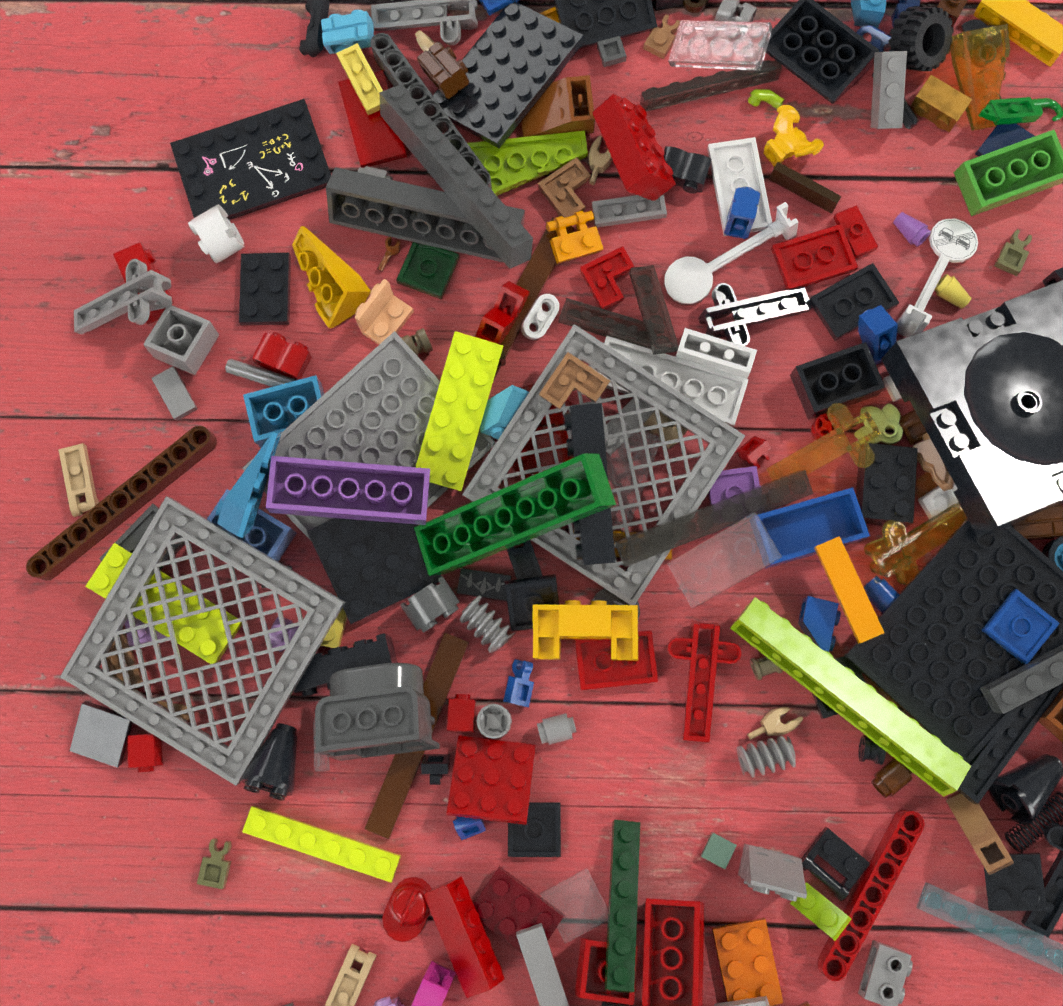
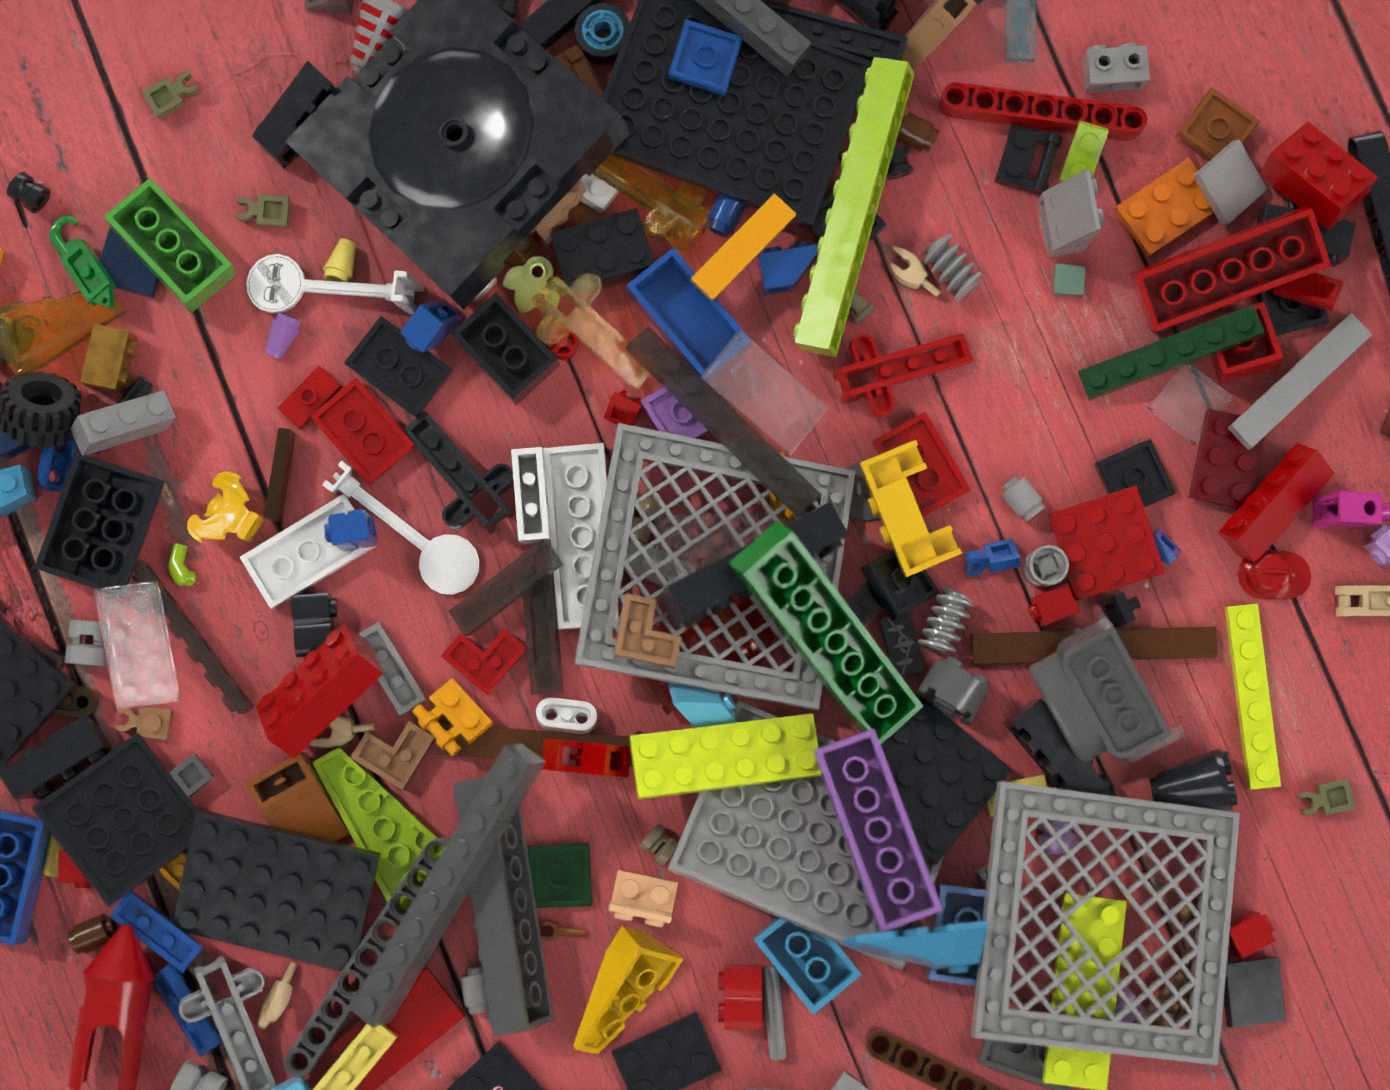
camera: 120 degrees left, 5 degrees up
(443, 69) = (306, 966): reddish brown brick -> none

